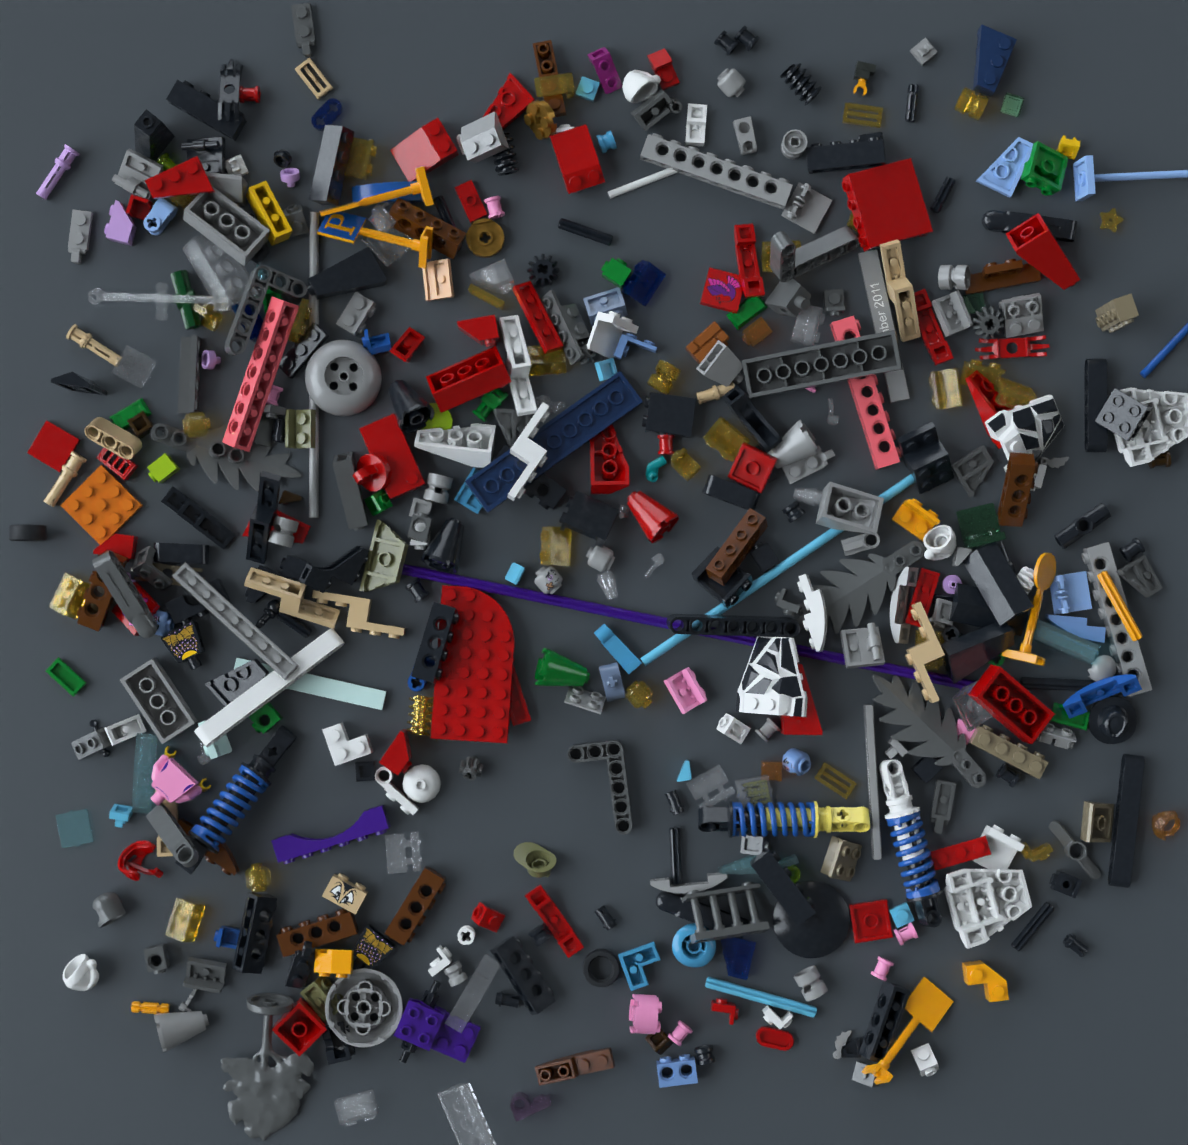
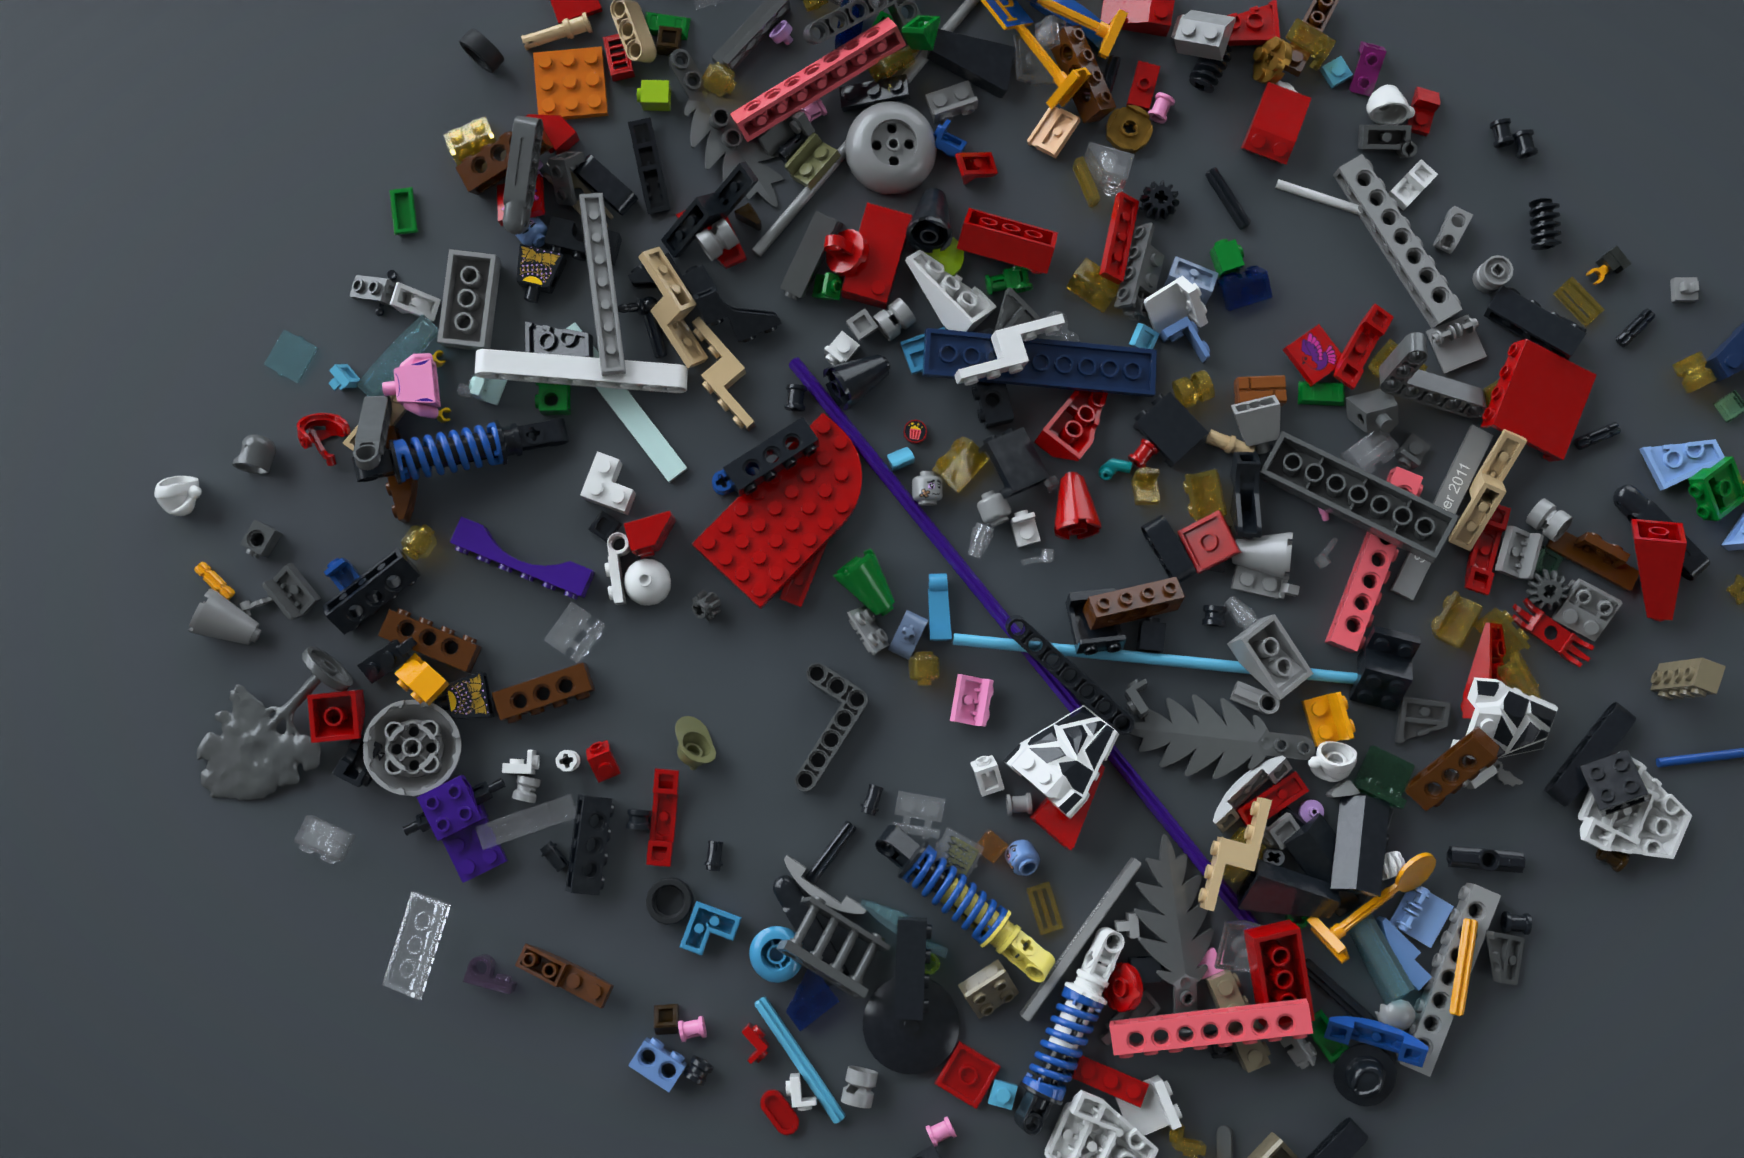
camera: 35 degrees right, 5 degrees down
(185, 920) = (317, 526): clear yellow bracket -> none
(302, 289) = (921, 32): none -> green slope
(316, 996) = (377, 698): olive bracket -> none
(345, 893) = (488, 625): tan brick -> none
(385, 559) = (789, 343): olive wing -> none
(420, 536) = (845, 348): dark grey brick -> none
(420, 715) = (700, 514): clear yellow piece -> none
(481, 329) = (1057, 205): red slope -> none
(510, 549) = (915, 431): none -> tile
(518, 365) = (1064, 265): white bracket -> none
(606, 142) = (1315, 132): dark azure wheel -> none
(630, 554) = (1024, 528): none -> white bracket
(644, 1014) = (674, 980): bright pink brick -> none
(685, 772) = (906, 779): medium azure slope -> none
(731, 82) = (1478, 171): light grey head -> none
(755, 845) = (916, 905): bracket -> none
(756, 332) = (1315, 419): clear orange brick -> none
(816, 620) = (1154, 736): white slope -> none
(862, 647) = (1176, 799): light grey plate -> none
(905, 934) = (991, 1116): bright pink bush -> none
(923, 790) = (1124, 988): none -> red tile
(1037, 718) = (1221, 1018): none -> coral brick

